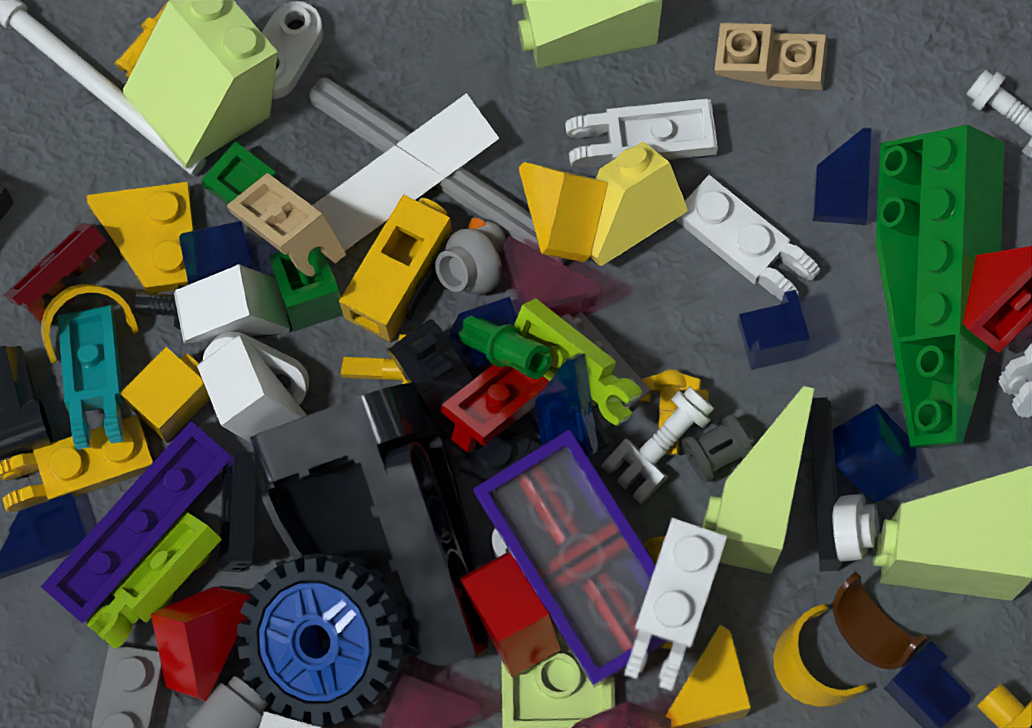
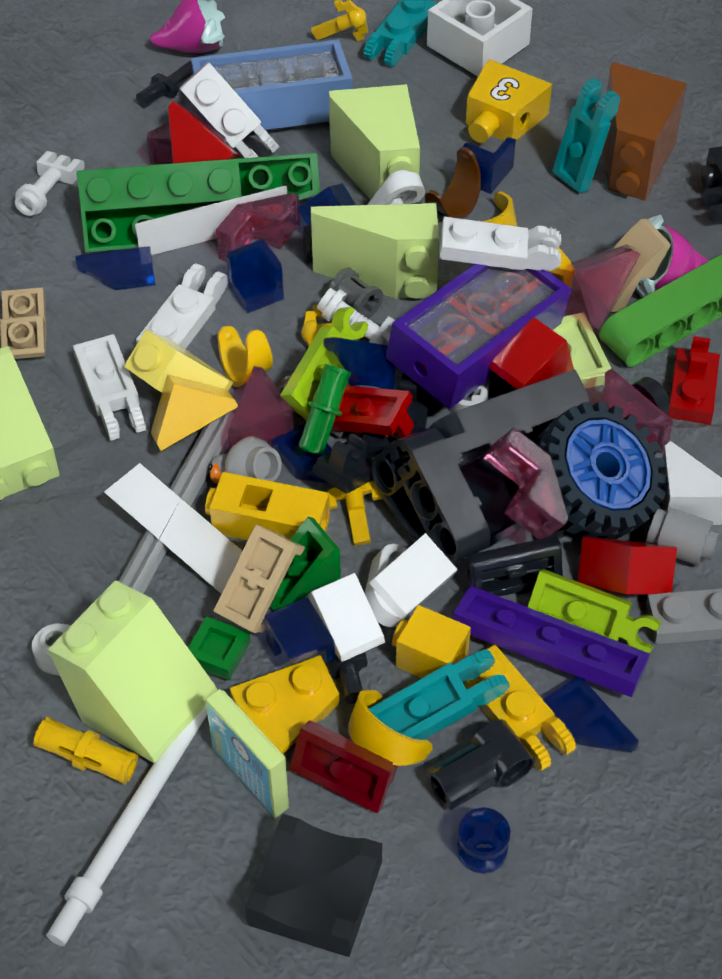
camera: 105 degrees left, 20 degrees down
(80, 168) = (248, 752): none -> tile
(289, 536) = (538, 500): none -> clear pink slope
(646, 292) = (240, 361): none -> yellow helmet
(873, 375) = (265, 219): none -> clear pink slope
(887, 301) = (192, 225): none -> white sticker

